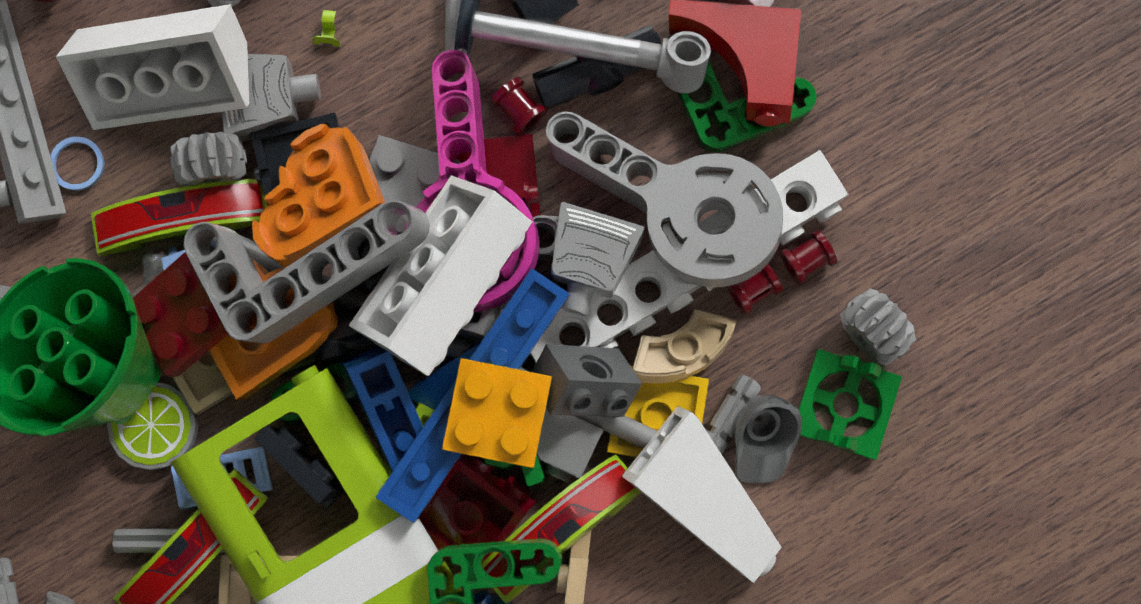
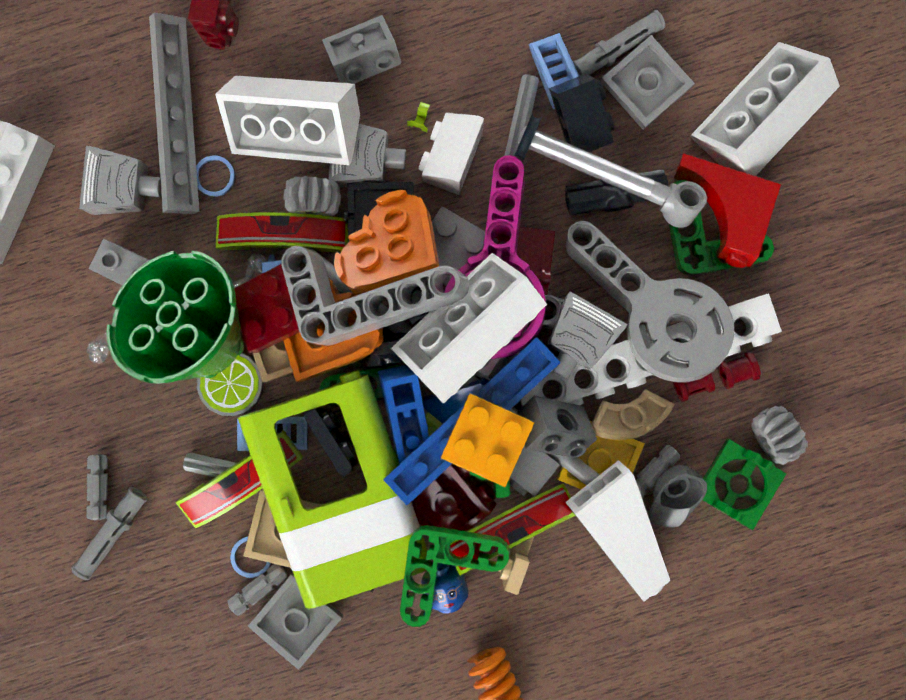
camera: 15 degrees right, 5 degrees up
(376, 63) = (452, 151): none -> white slope
(518, 105) = (550, 207): dark red bush -> none

